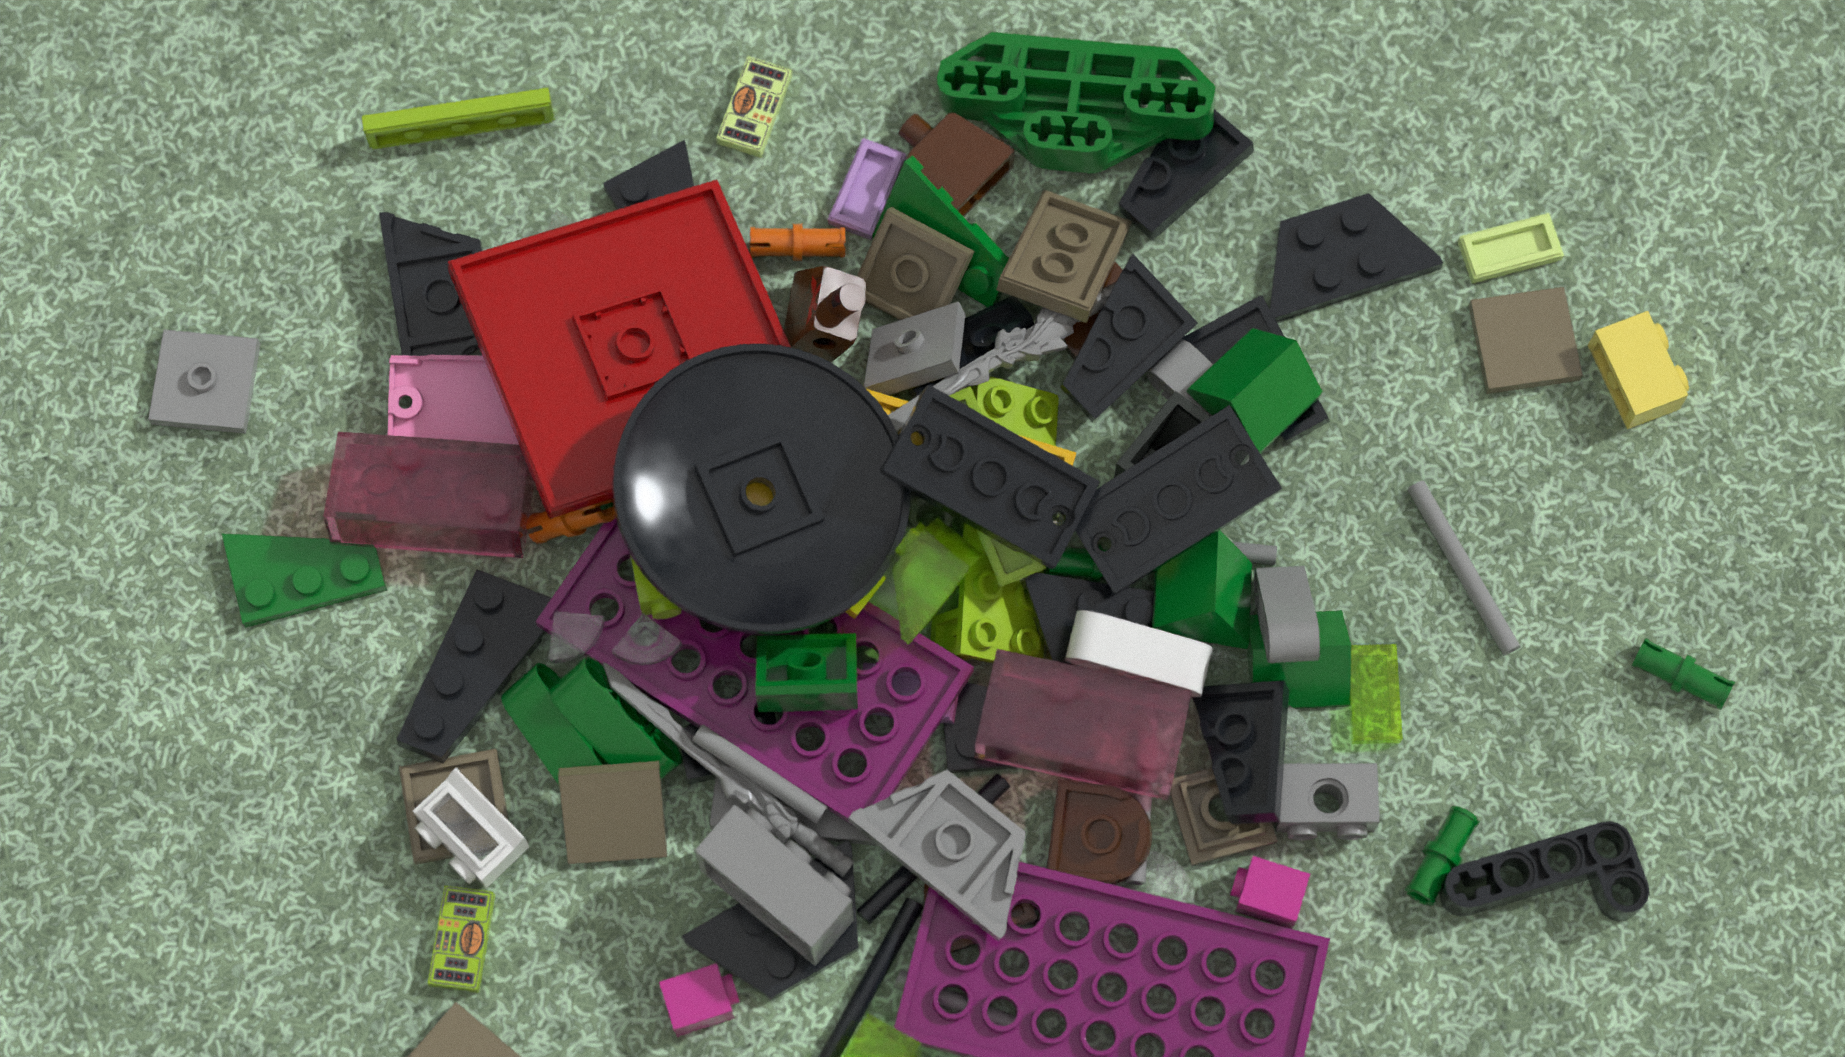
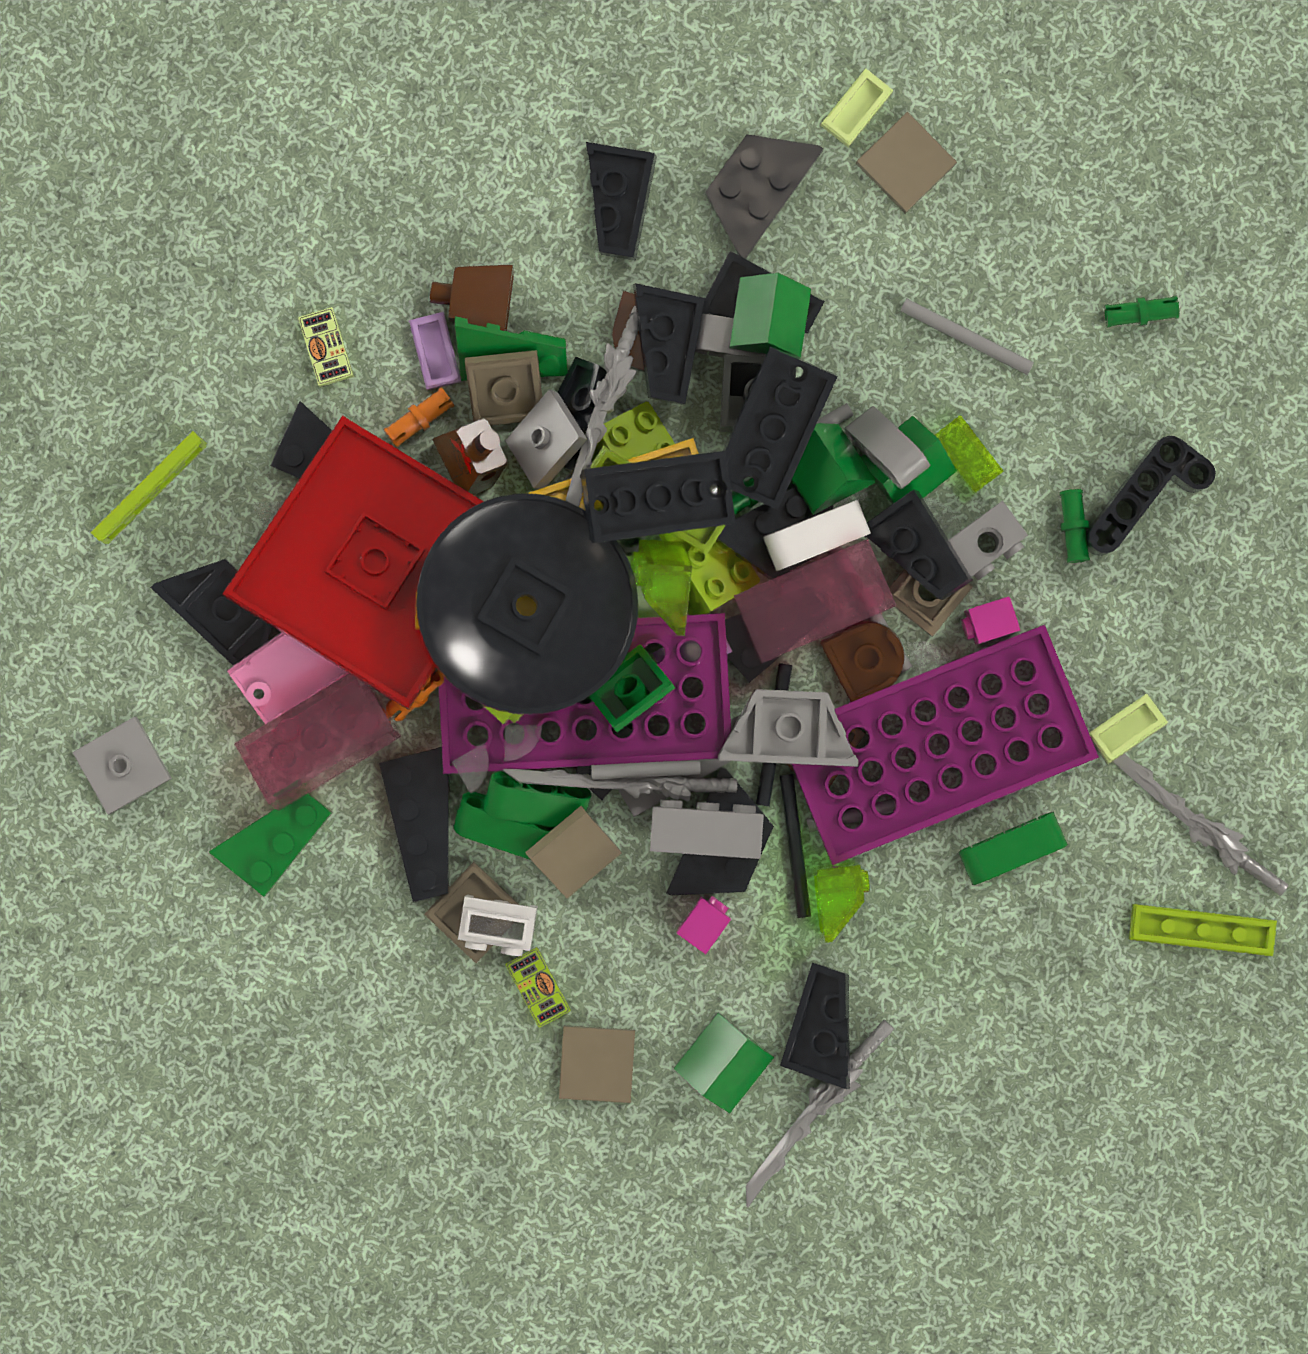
camera: 40 degrees left, 15 degrees up
(1064, 99) = (525, 204): green connector -> none
(1064, 256) = (591, 311): dark tan tile -> none
(1639, 369) = (989, 134): light yellow brick -> none

